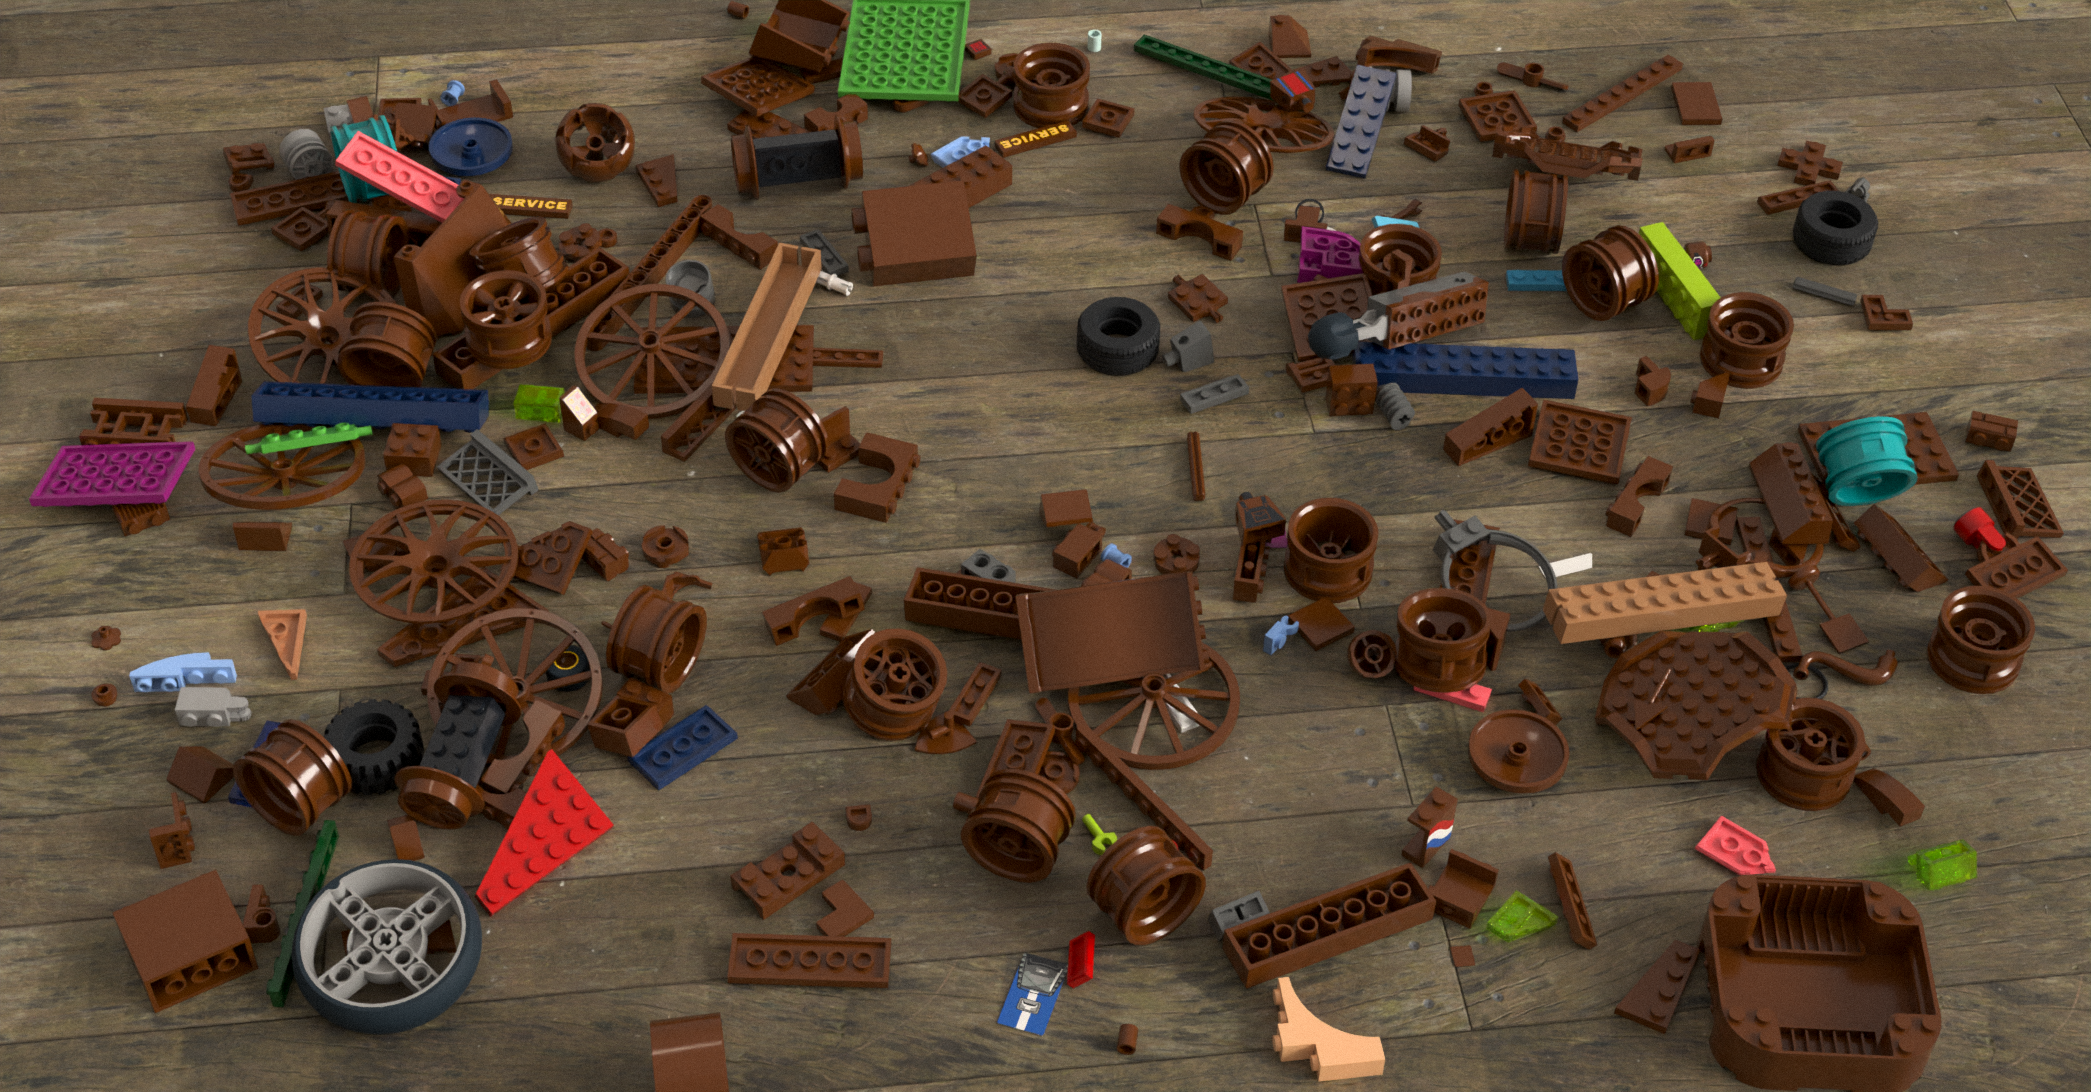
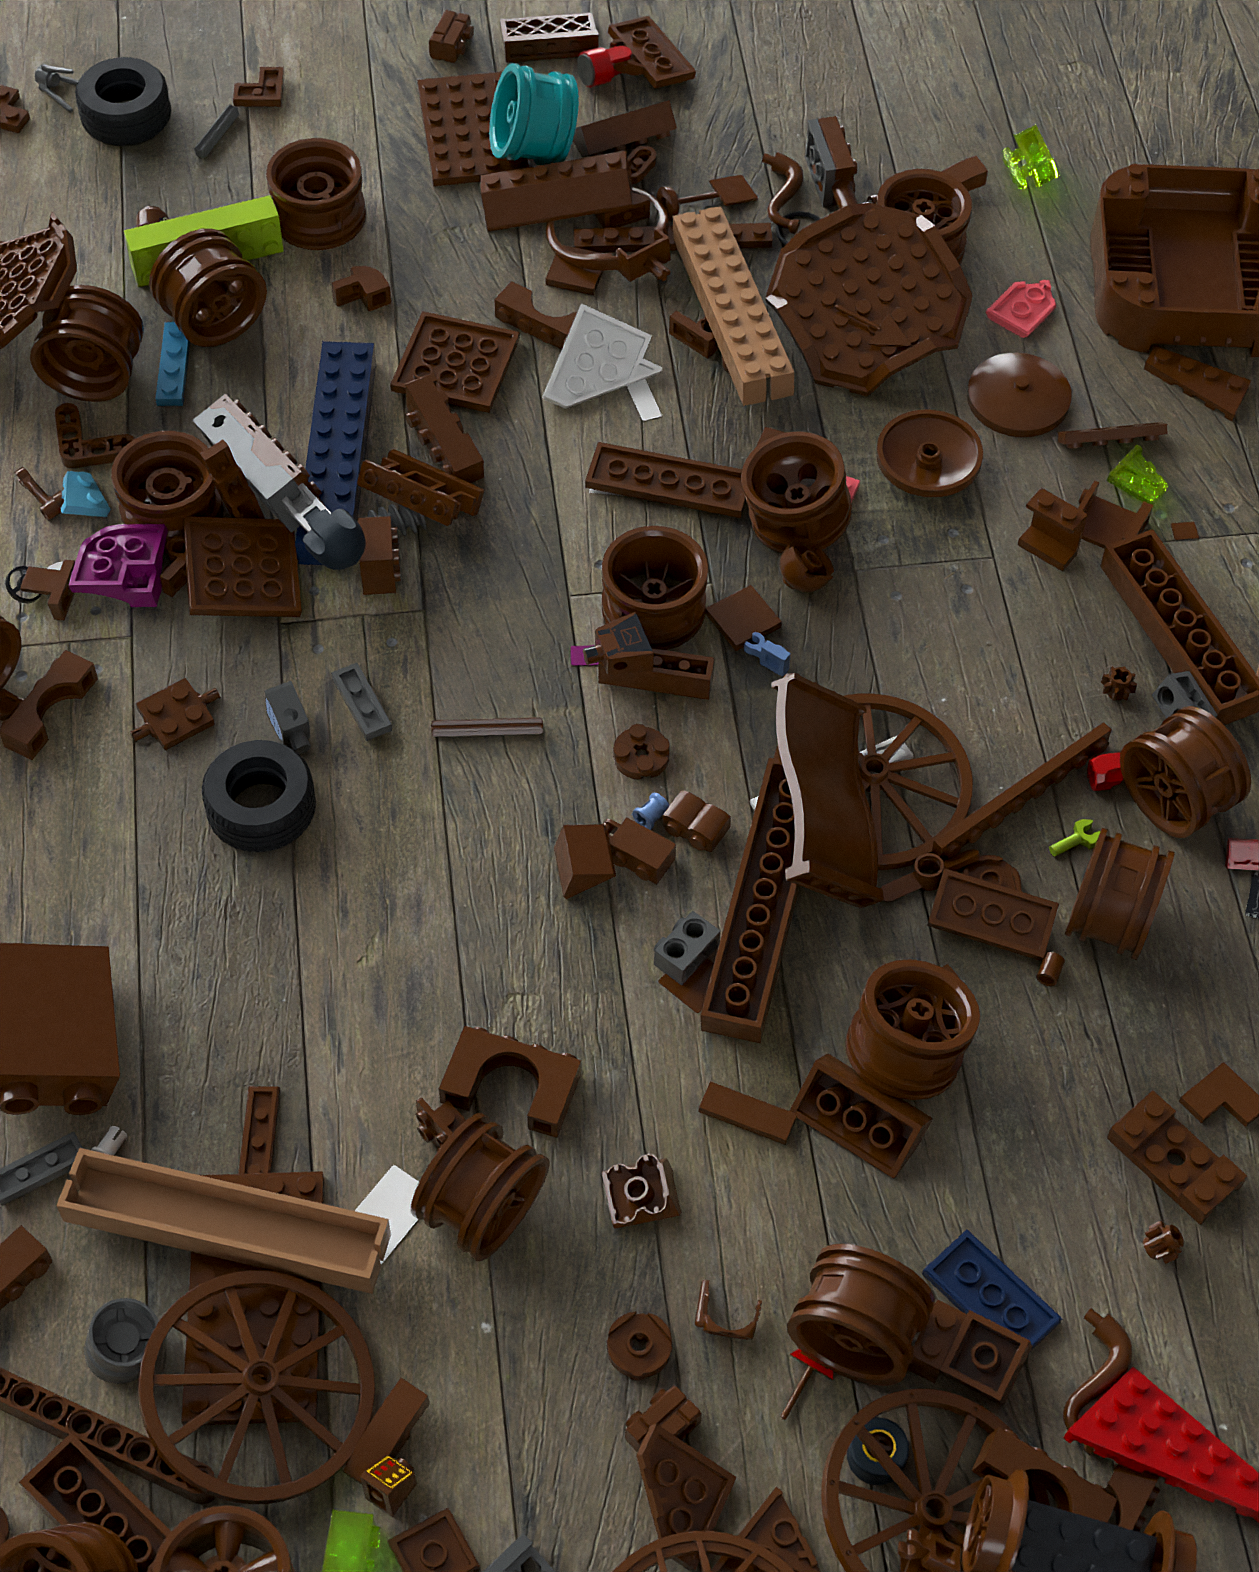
camera: 90 degrees left, 10 degrees up
(622, 817) = (1115, 1366): none -> reddish brown animal
(691, 422) = (394, 1329): reddish brown fence -> none
(715, 843) = (1163, 1242): none -> reddish brown gear
(837, 598) = (782, 1177): reddish brown arch -> none
(859, 817) = (1079, 1085): reddish brown tile -> none
(975, 693) = (865, 954): reddish brown plate -> none
(1265, 876) = (1119, 683): none -> reddish brown gear
(1310, 373) = (335, 595): reddish brown plate -> none
(1413, 422) = (420, 487): none -> reddish brown fence
(1448, 233) = (84, 448): none -> reddish brown beam
(1473, 531) = (643, 474): dark grey brick -> none
(1537, 698) = (862, 430): reddish brown plate -> none
(1592, 523) = (598, 359): none -> white wing
(1616, 836) = (1019, 394): none -> reddish brown dish
(1710, 396) = (388, 241): reddish brown slope -> none
(1792, 198) = (50, 131): reddish brown tile -> none
(1855, 561) = (641, 162): none -> reddish brown plate
(1885, 692) = (830, 162): none -> piece
(1980, 639) = (760, 83): reddish brown wheel -> none

